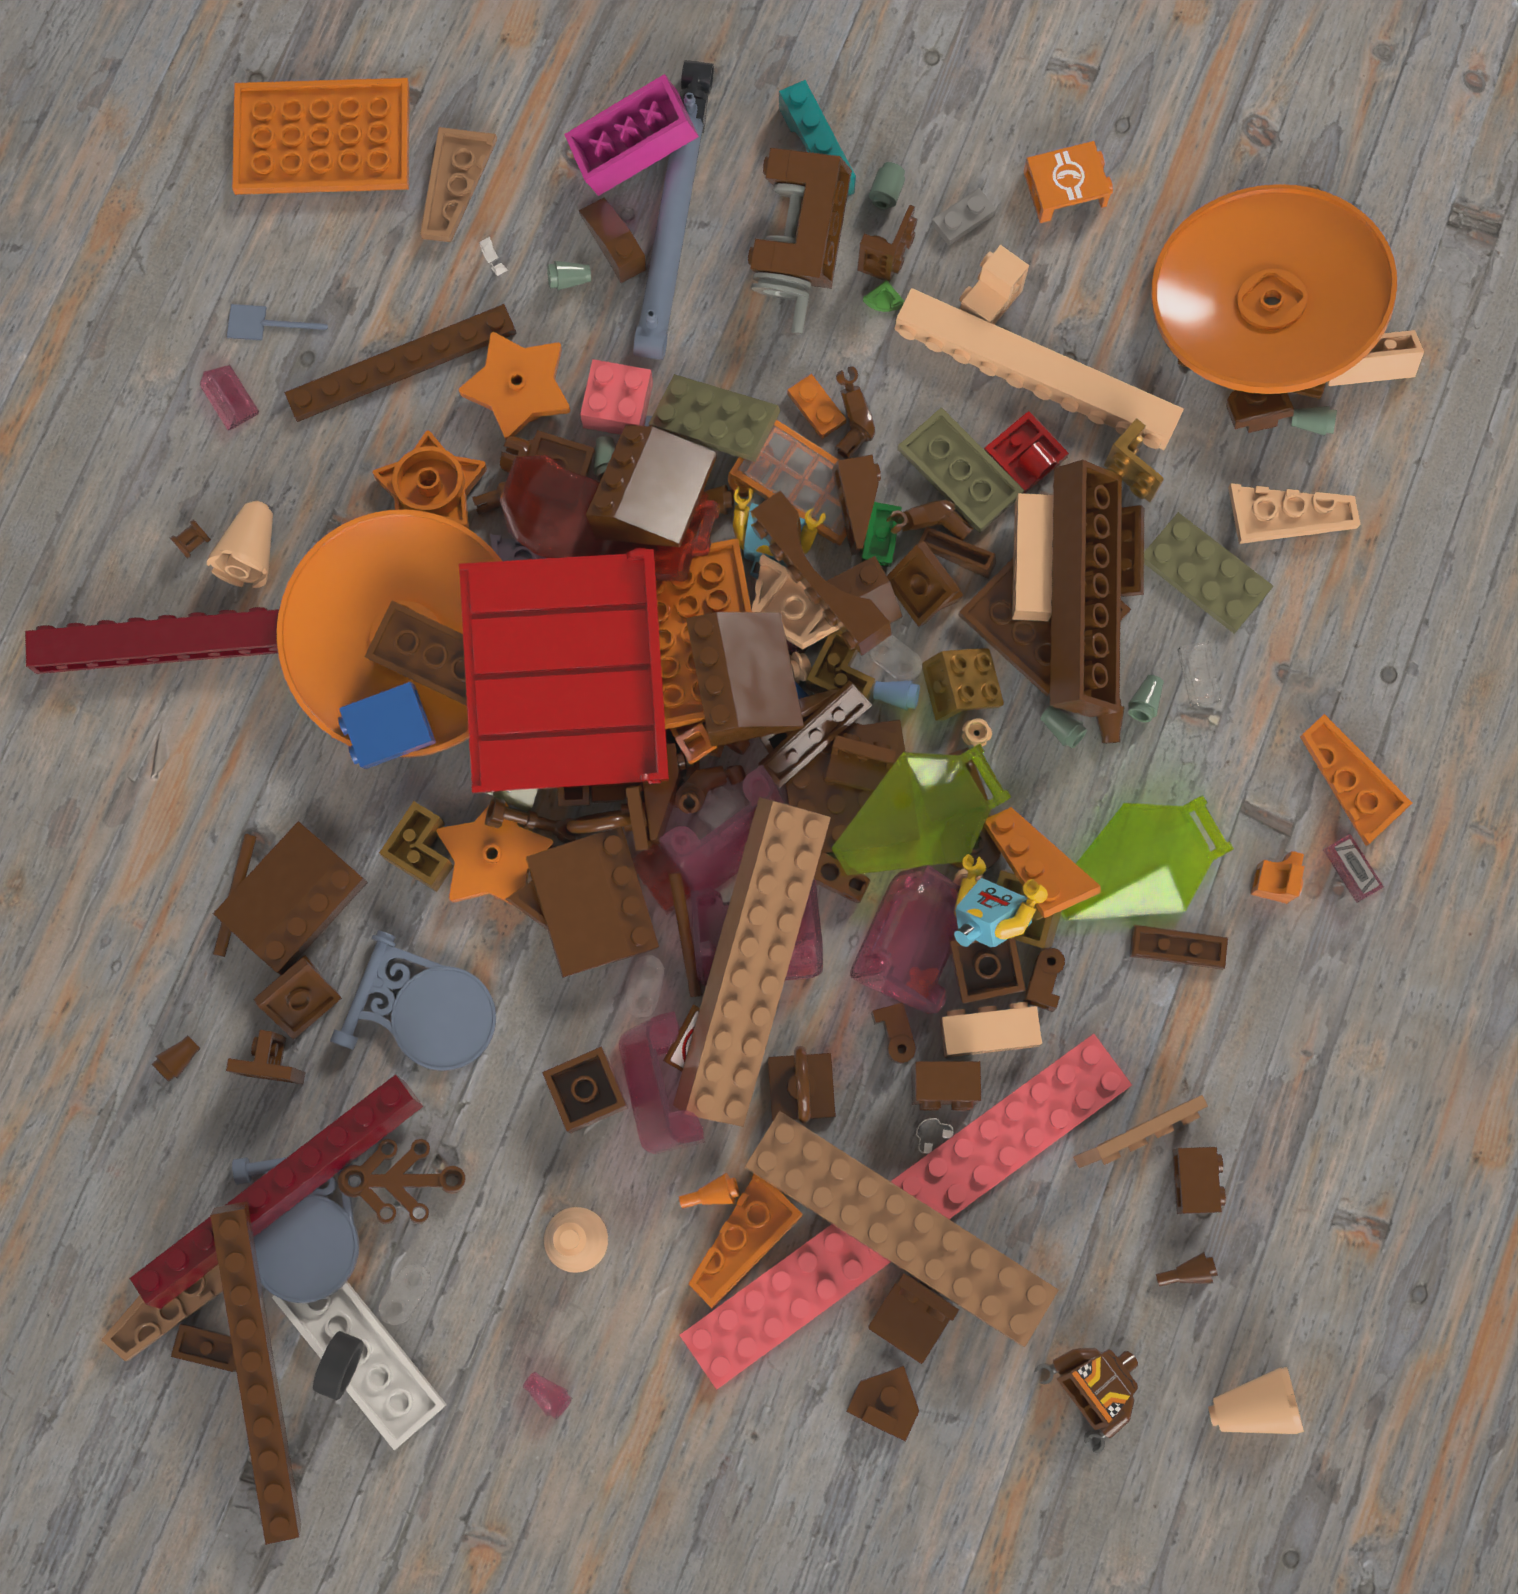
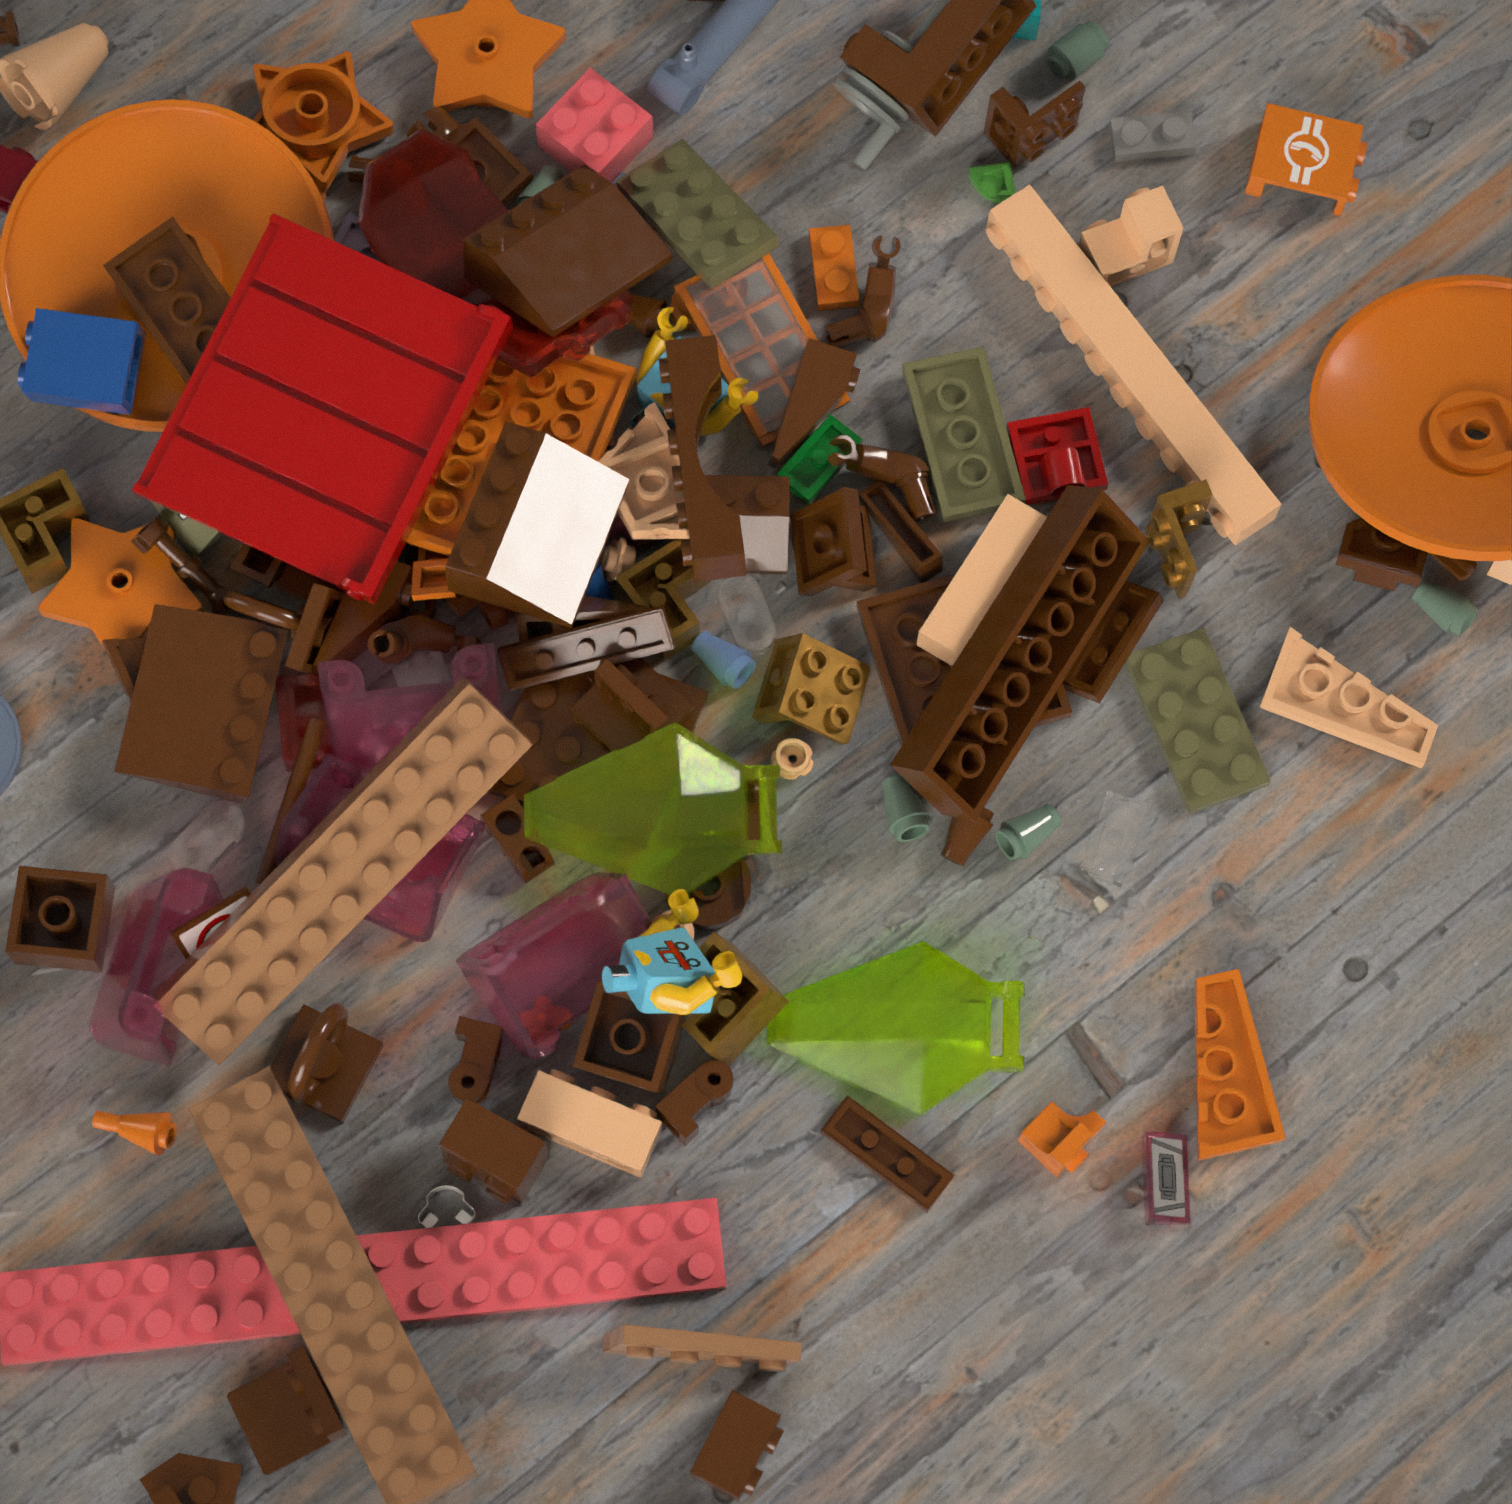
camera: 25 degrees right, 5 degrees down
(750, 1232) = (157, 1200): orange wing -> none
(1038, 859) = (765, 948): orange wing -> none

